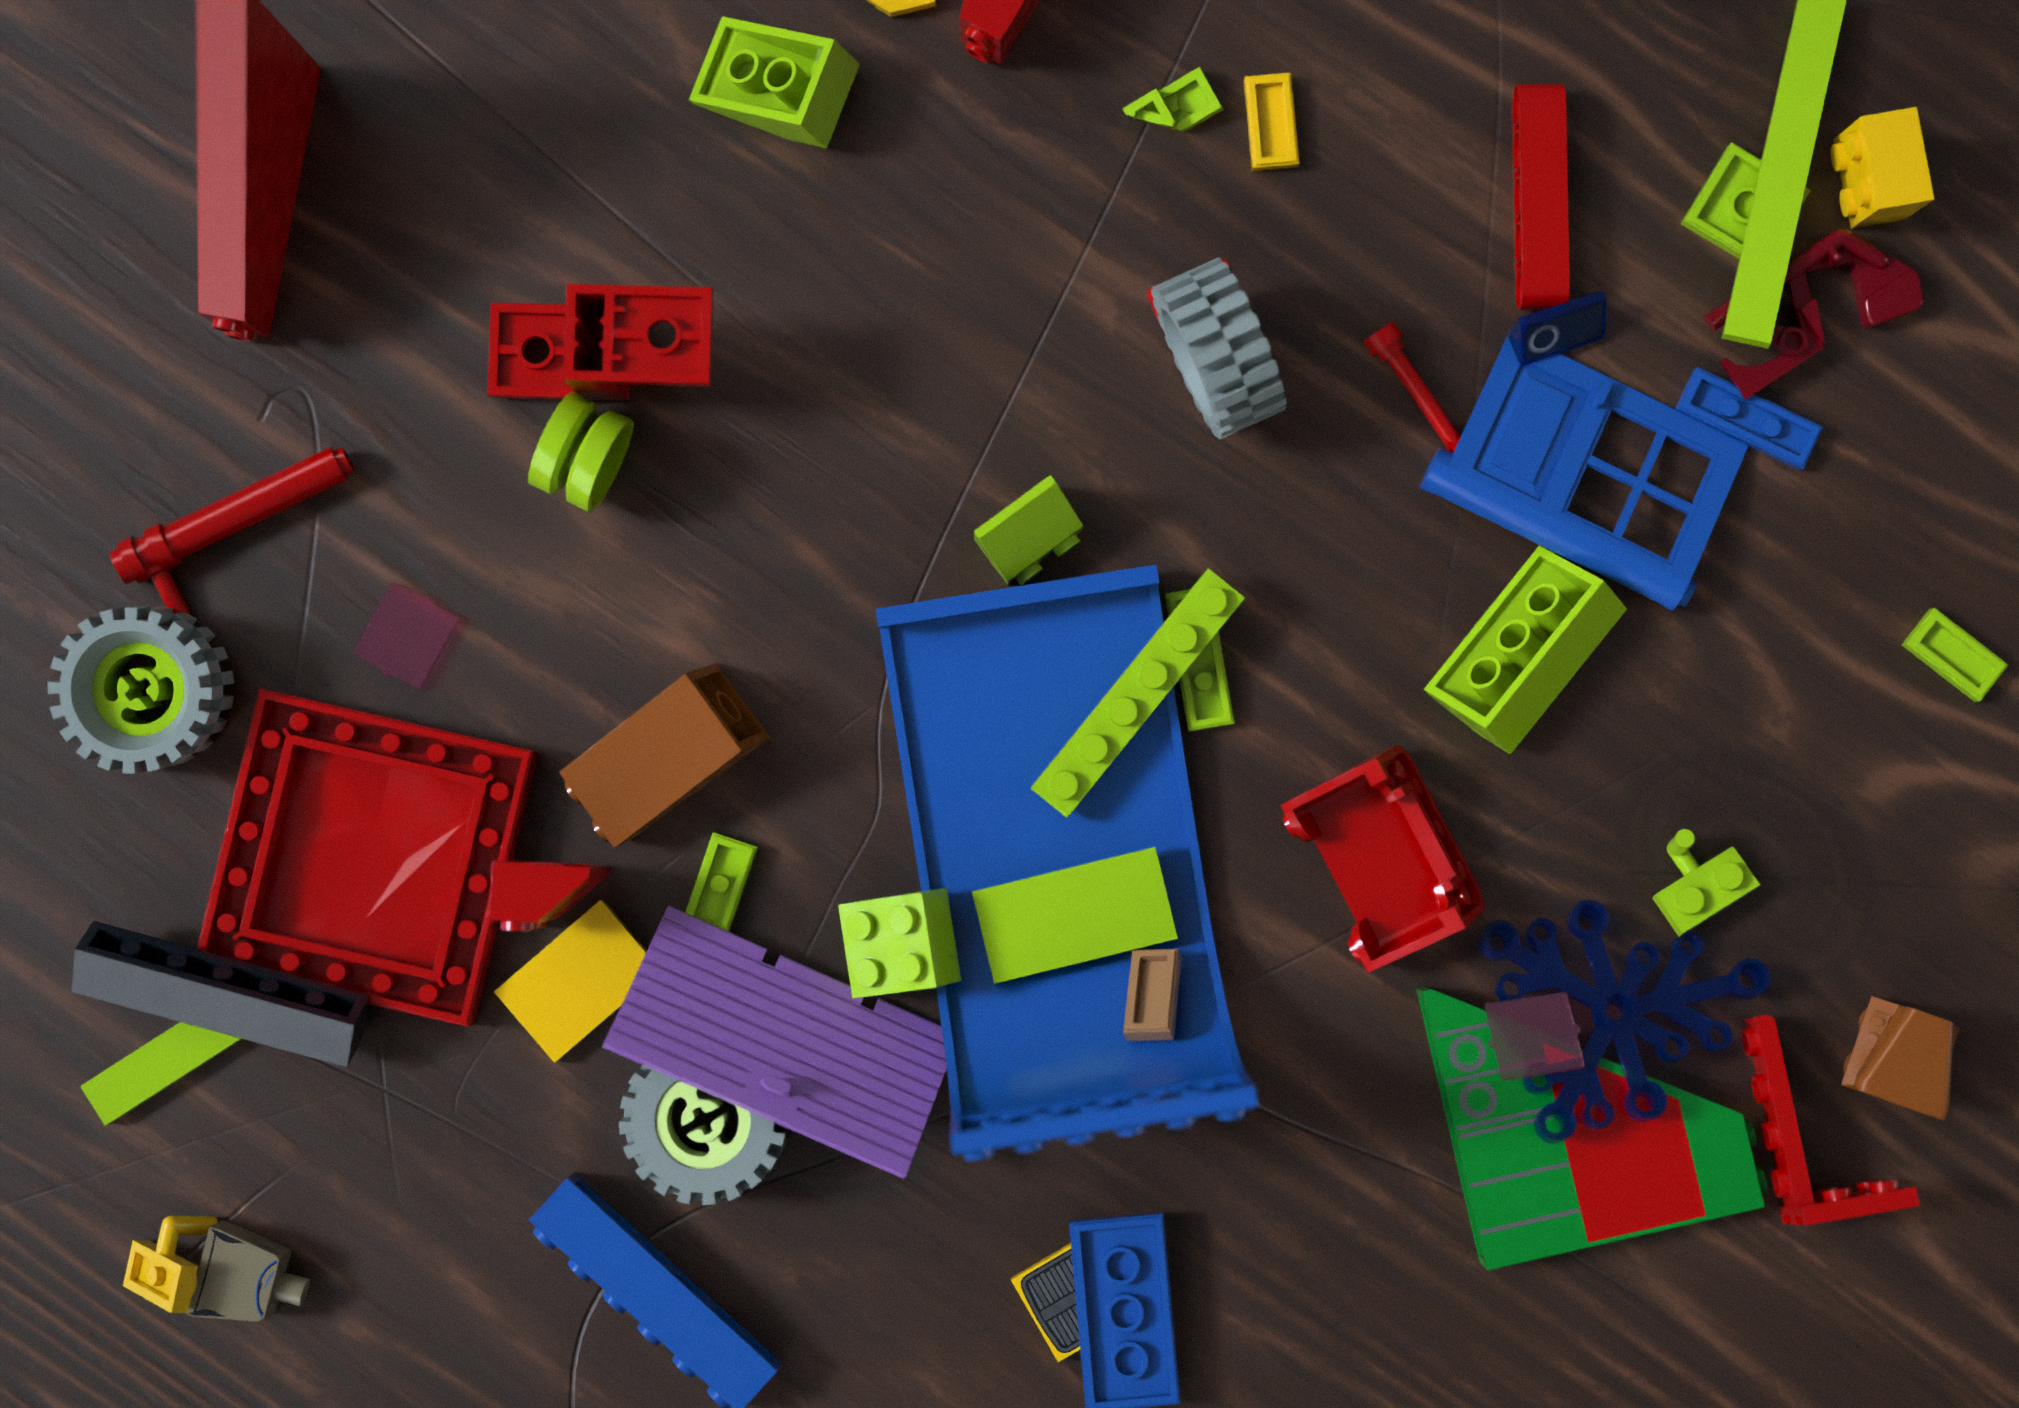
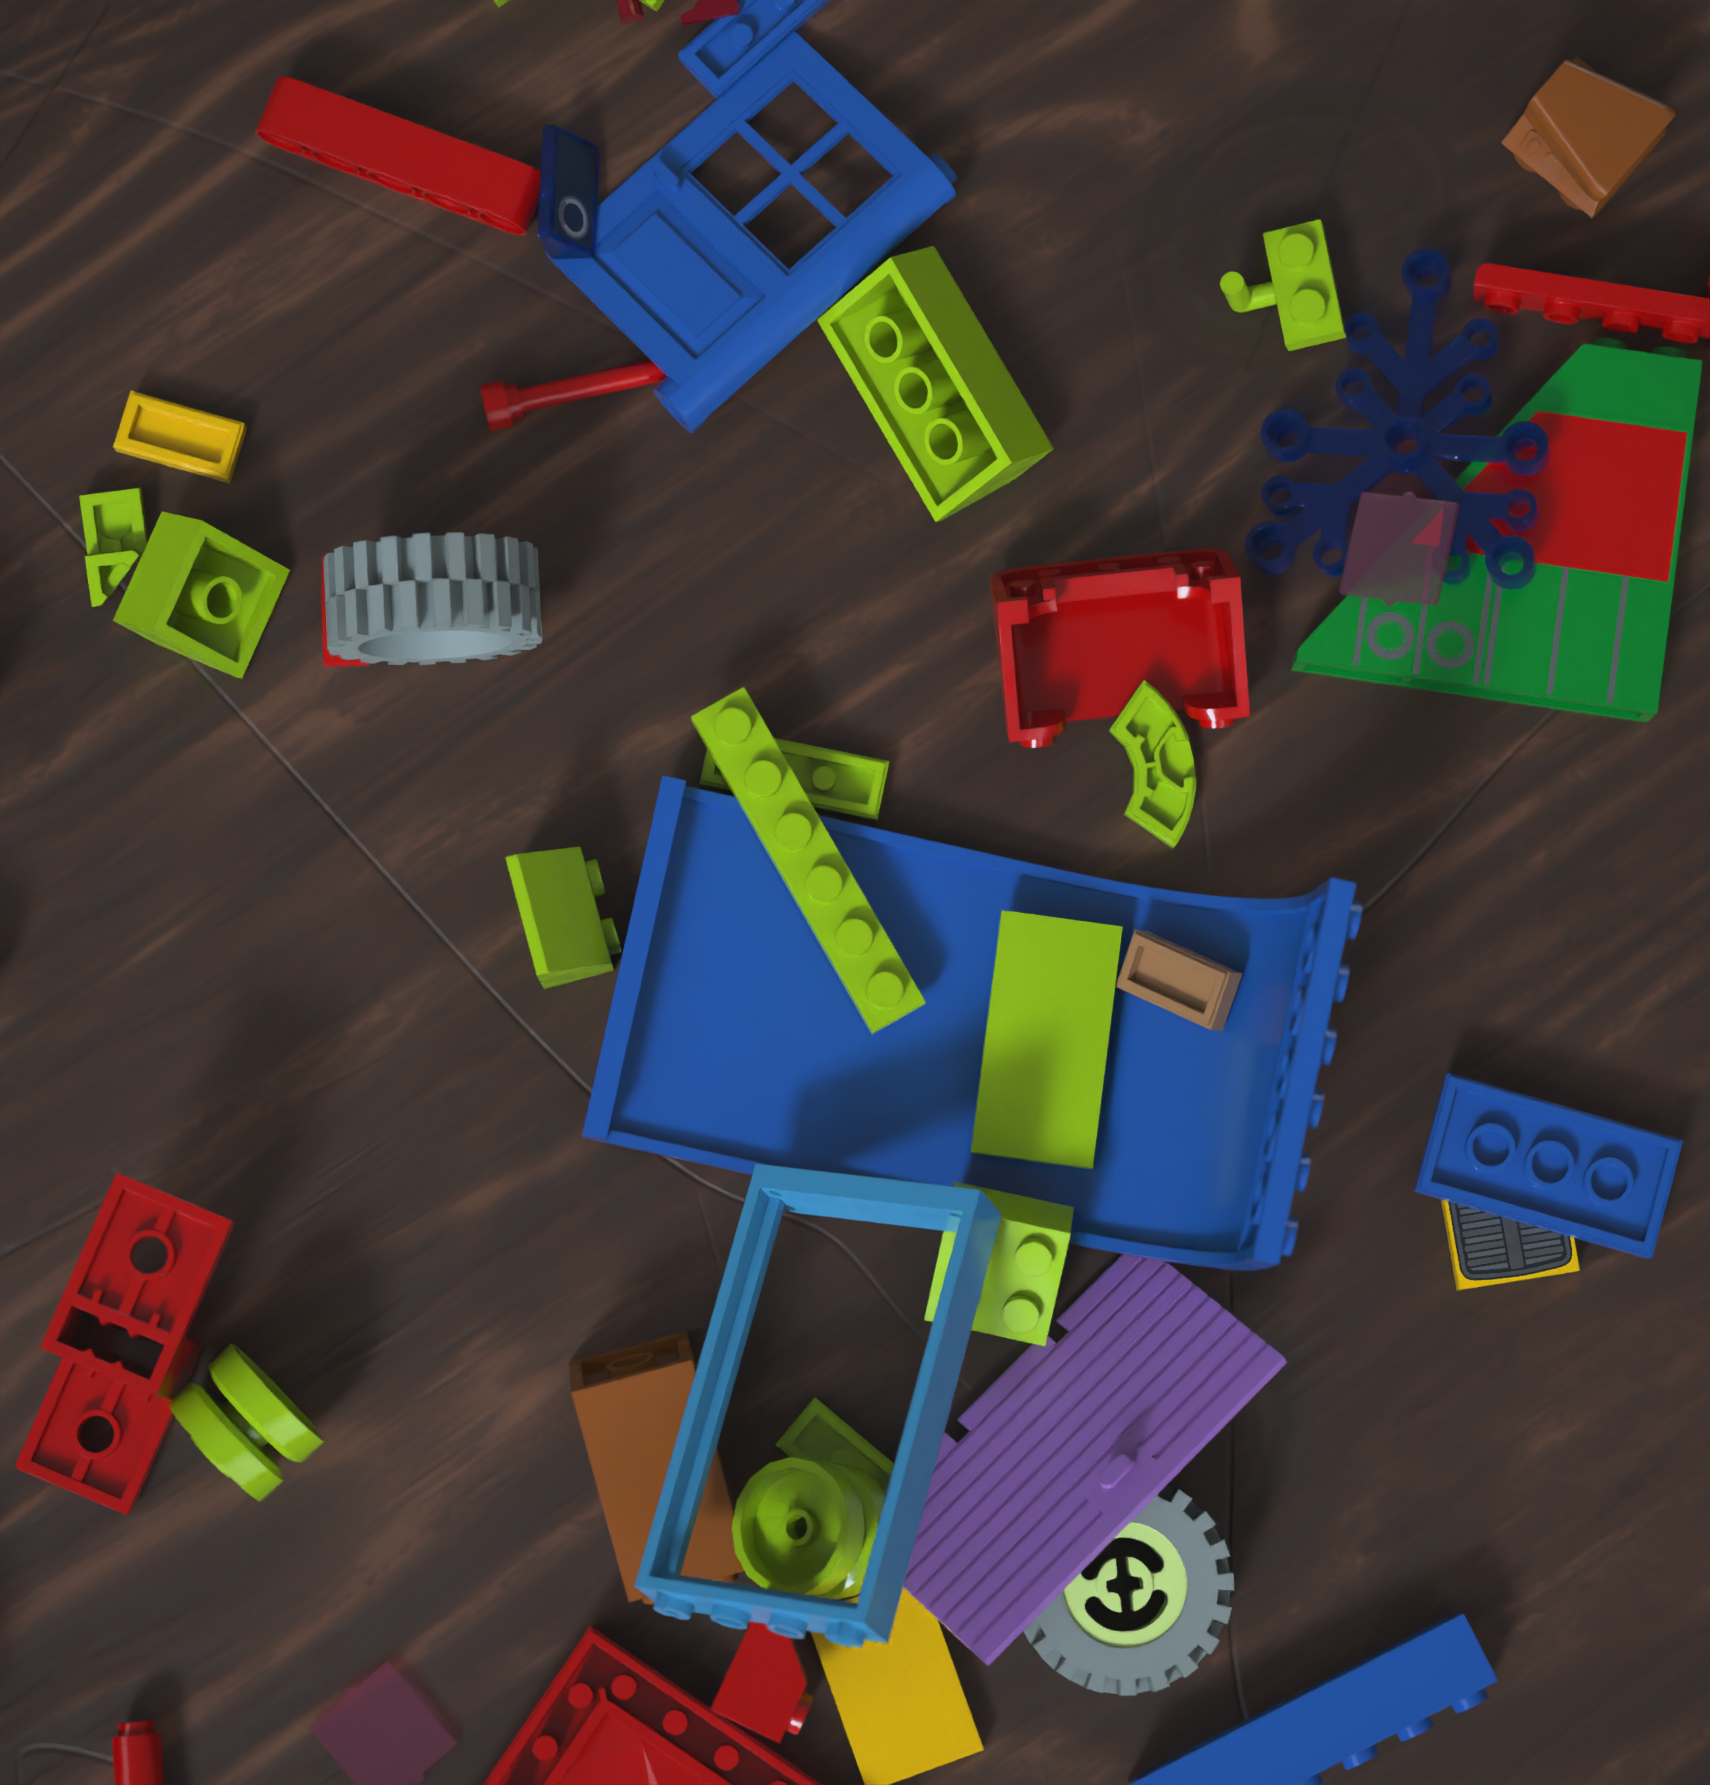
camera: 70 degrees left, 5 degrees down
(658, 882) = (807, 1527): none -> lime wheel
(740, 771) = (844, 1197): none -> dark azure door
(1162, 183) = (201, 594): none -> lime slope
(1310, 920) = (1160, 762): none -> lime tile

